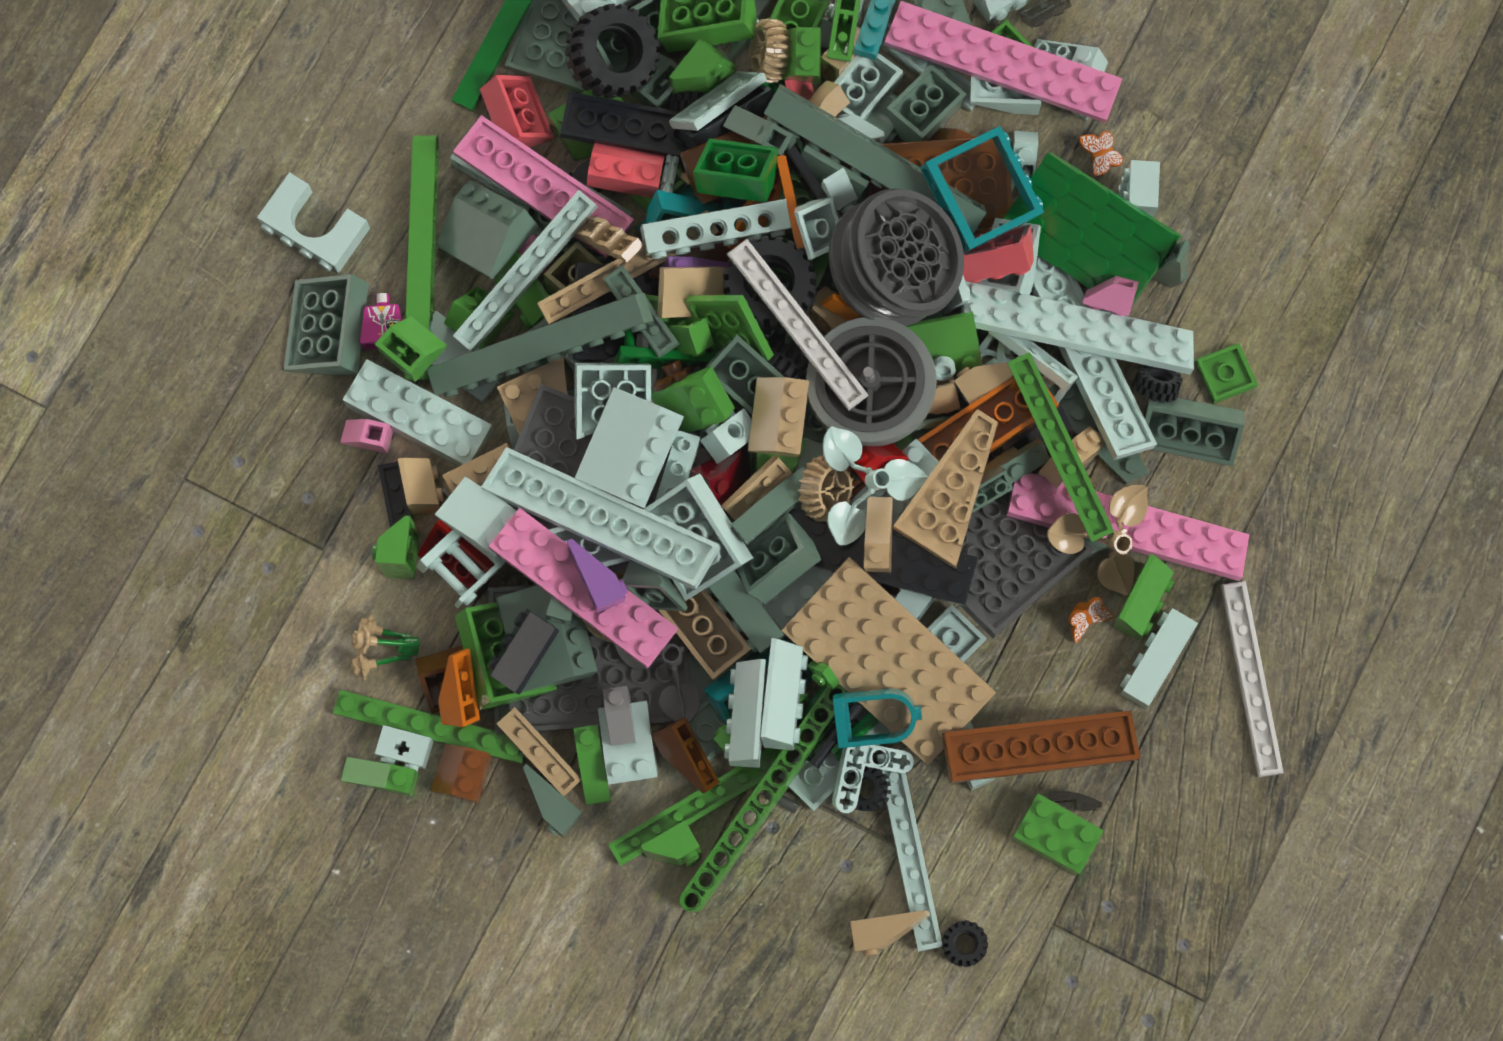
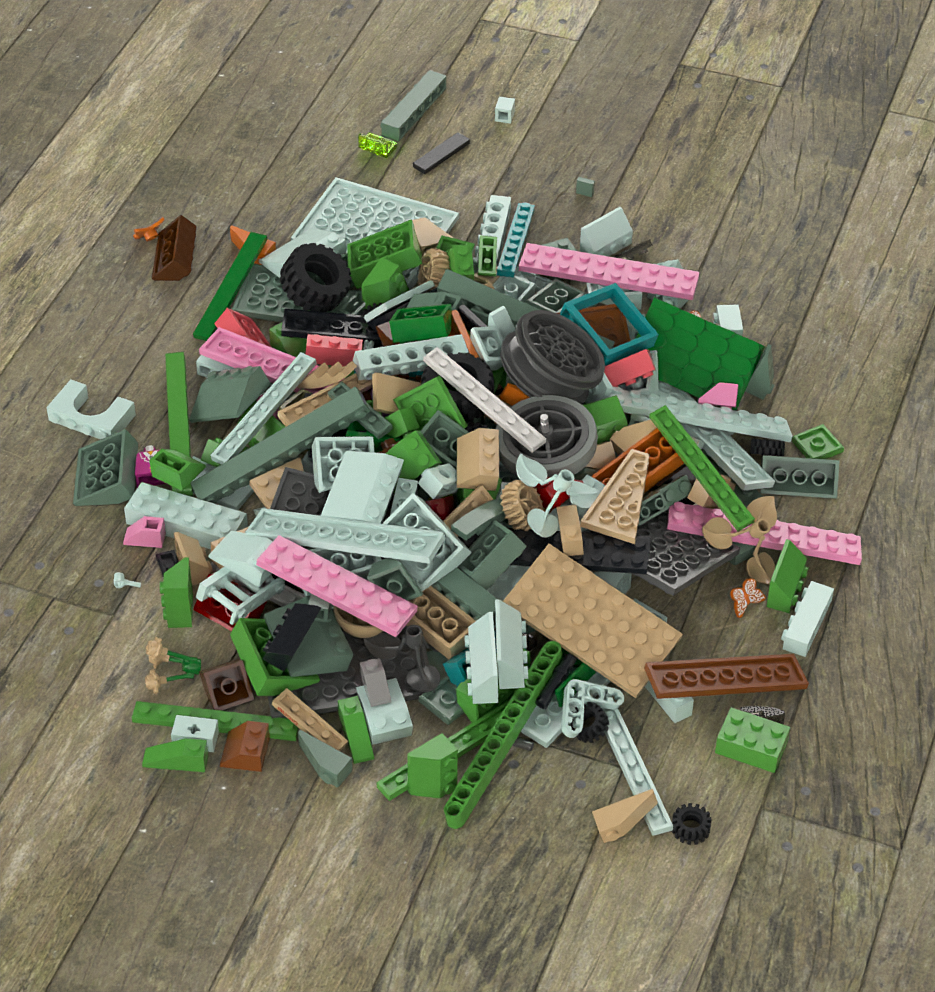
camera: 10 degrees left, 30 degrees down
(332, 502) = (120, 581): none -> light aqua hand
(458, 692) = (238, 683): orange slope -> none
(598, 580) = (348, 569): medium lavender slope -> none
(683, 751) = (428, 703): reddish brown slope -> none
(823, 674) = (540, 633): bright green plate -> none
(843, 723) = (560, 656): teal window -> none
(944, 368) = (603, 434): light aqua tile -> none
(1251, 679) = (886, 629): white tile -> none

